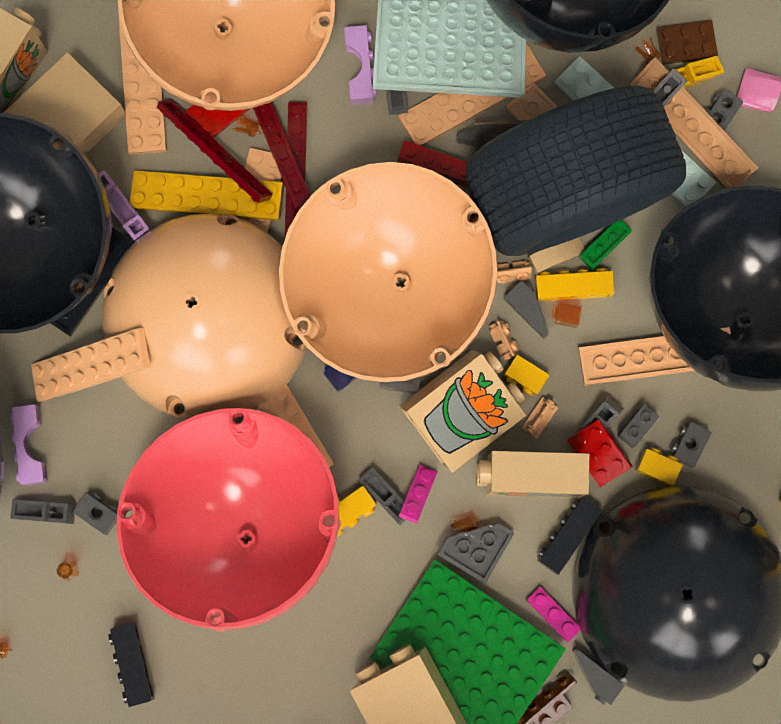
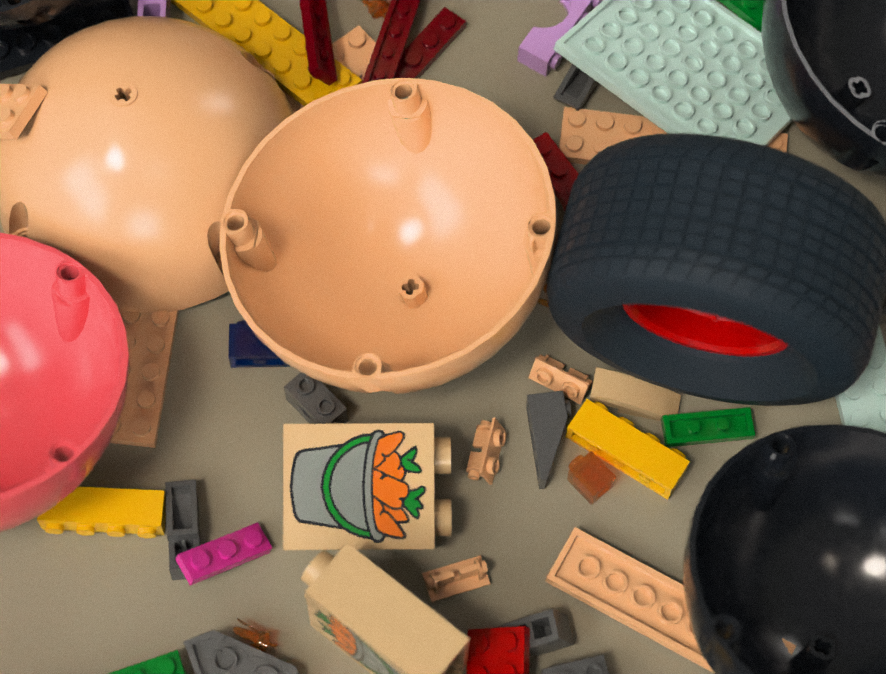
camera: 40 degrees right, 15 degrees down
(526, 376) = (478, 512): yellow brick -> none

